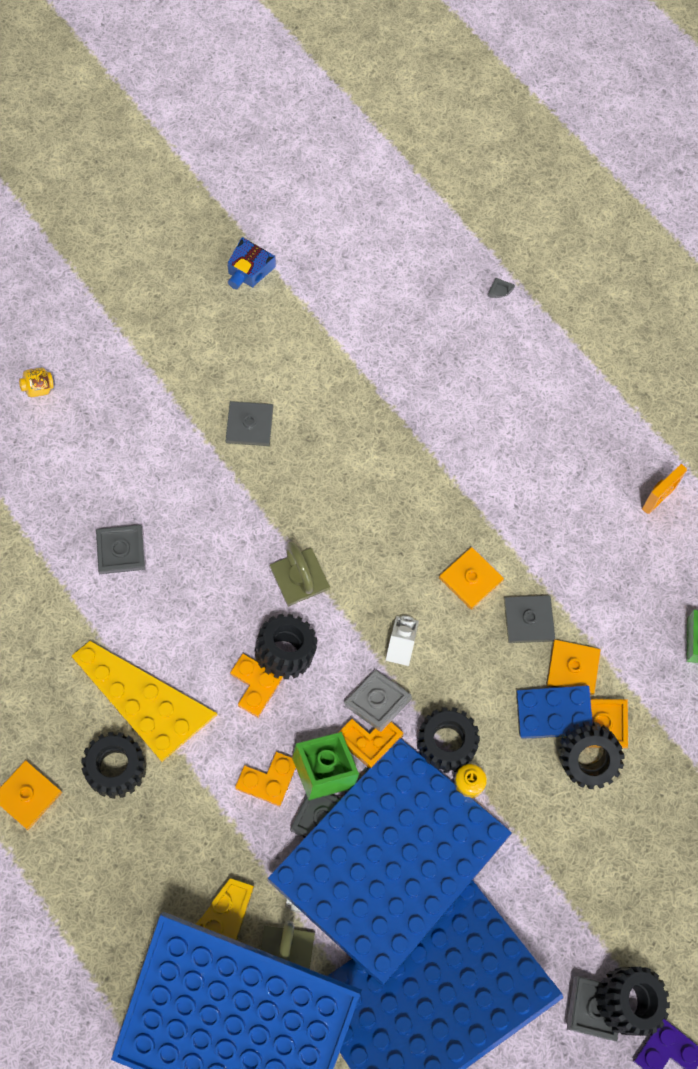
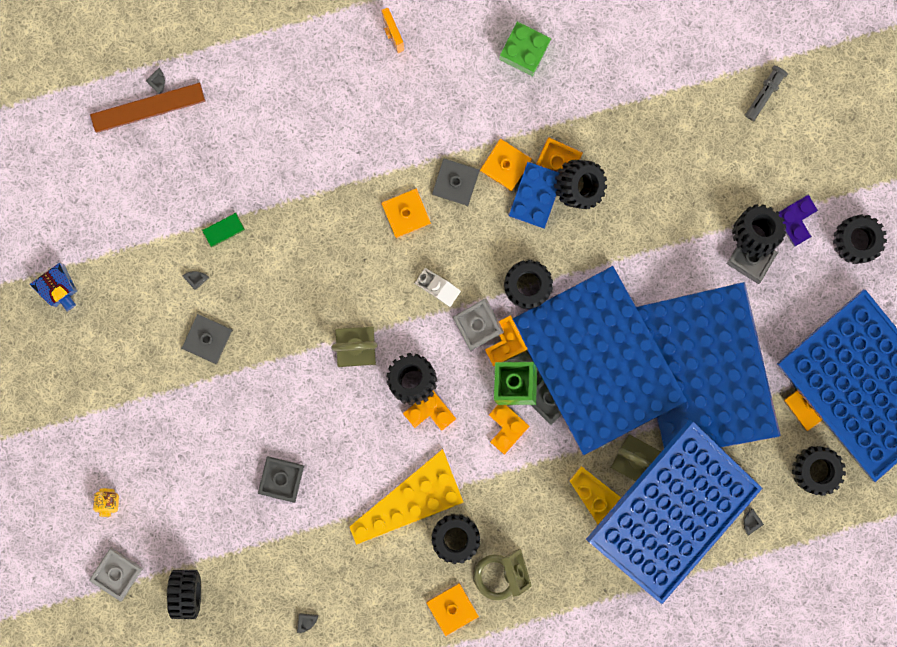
camera: 65 degrees left, 20 degrees up
(95, 849) = (514, 573): none -> olive tile
(310, 391) = (195, 278): none -> dark grey tile
(373, 400) = (223, 230): none -> green tile
(470, 289) = (147, 107): none -> dark orange tile
(477, 777) = (564, 287): yellow head -> none

